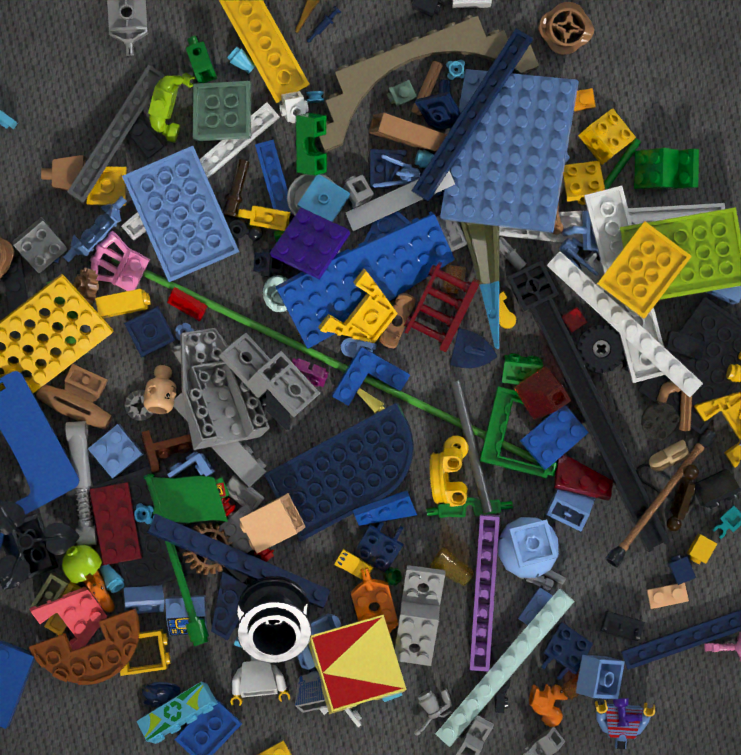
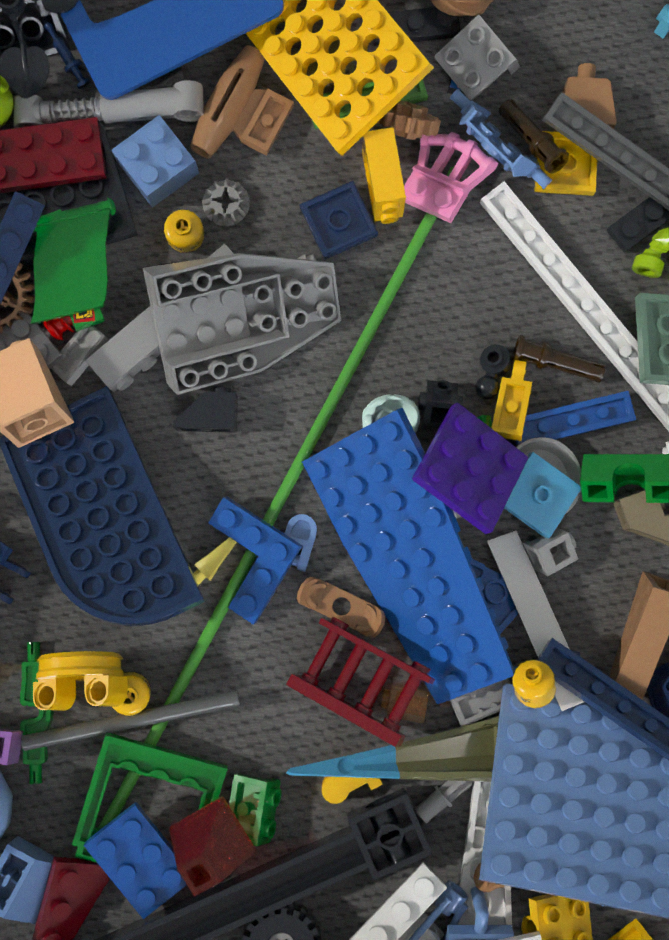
camera: 90 degrees right, 5 degrees down
(46, 513) = (69, 60): none -> dark blue piece
(96, 204) = (540, 143): none -> dark brown pin
(139, 517) = (54, 196): dark azure plate -> none
(160, 391) = (244, 229): light nougat piece -> none
(164, 423) = (186, 240): none -> yellow head
(164, 448) = (152, 226): copper bracket -> none
(180, 213) = (522, 269): medium blue plate -> none
(180, 328) = (342, 267): medium blue plate -> none
(187, 304) = (379, 277): red plate -> none
(203, 465) = (124, 289): medium blue bracket -> none
(269, 374) = (260, 398): light grey bracket -> none
(316, 376) = (267, 450): magenta hinge -> none
(368, 318) = (346, 560): yellow wing -> none
(382, 170) = (589, 594): dark blue wing -> none
(386, 509) = (36, 578): blue wing -> none
(407, 174) = (577, 631): medium blue plant -> none
(423, 158) = (602, 658): medium azure cone -> none
(439, 201) = (534, 683): none -> yellow head
(471, 350) = (288, 725): dark blue shield -> none
(574, 319) = (333, 900): red tile -> none

